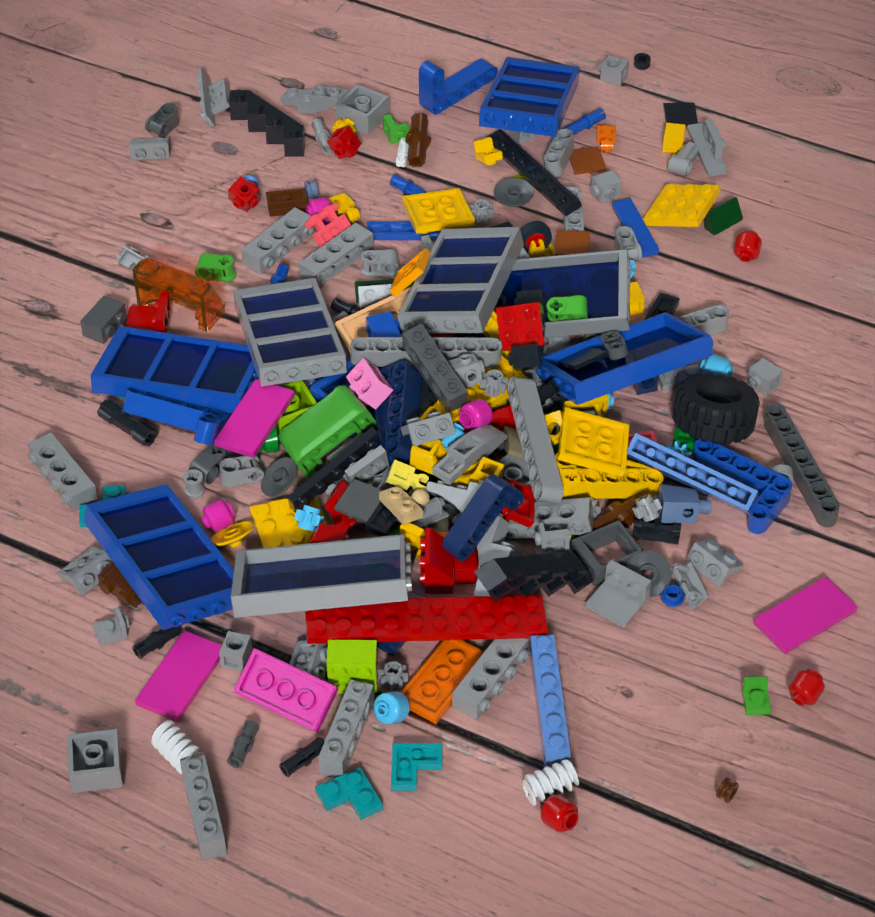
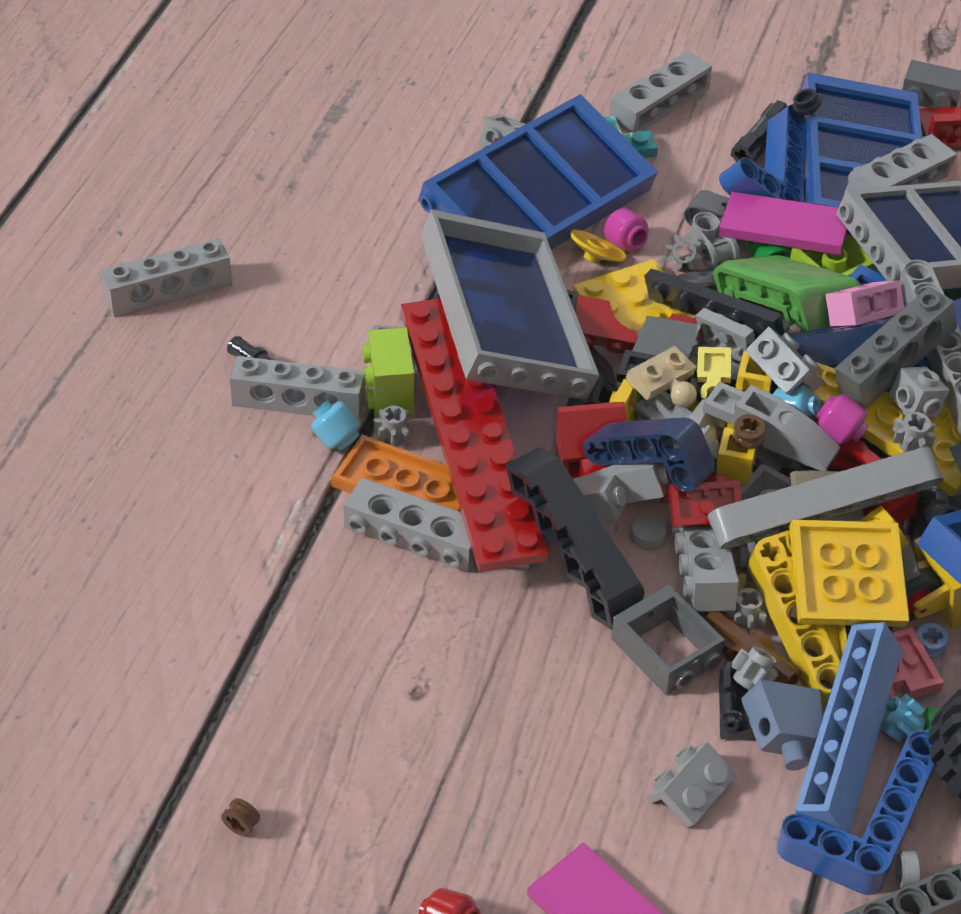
camera: 80 degrees right, 0 degrees up
(94, 761) = (221, 179): light grey brick -> none
(112, 629) = (425, 168): light grey bracket -> none
(133, 379) = (806, 102): none -> black plate
(155, 641) = (409, 205): black pin -> none
(174, 744) = (254, 242): white piece -> none
(180, 676) = (366, 239): dark pink tile -> none
(193, 480) = (675, 198): light grey bush -> none
(222, 347) = (916, 163): none -> light grey brick
(235, 651) = (409, 275): light grey brick -> none
(243, 744) = (268, 302): dark grey pin -> none
(250, 486) = (691, 247): none -> light grey gear
(286, 690) = (348, 324): dark pink tile -> none
(308, 518) = (630, 300): medium azure gear -> none
(352, 788) = (212, 412): teal plate -> none
(408, 759) = (255, 454): teal plate -> none
(490, 455) = (746, 440): none -> reddish brown bush
(549, 700) = (370, 591): medium blue brick -> none
(549, 780) = (229, 599): white piece -> none
(551, 541) = (650, 556): light grey bracket -> none
(559, 813) = (181, 617): red head -> none
(620, 594) = (584, 661): light grey bracket -> none
(657, 564) = (636, 692): dark grey dish -> none
(672, 596) = (607, 724): blue plate -> none
(690, 584) = (642, 744): light grey hinge -> none
(756, 695) = (426, 852): bright green bracket -> none

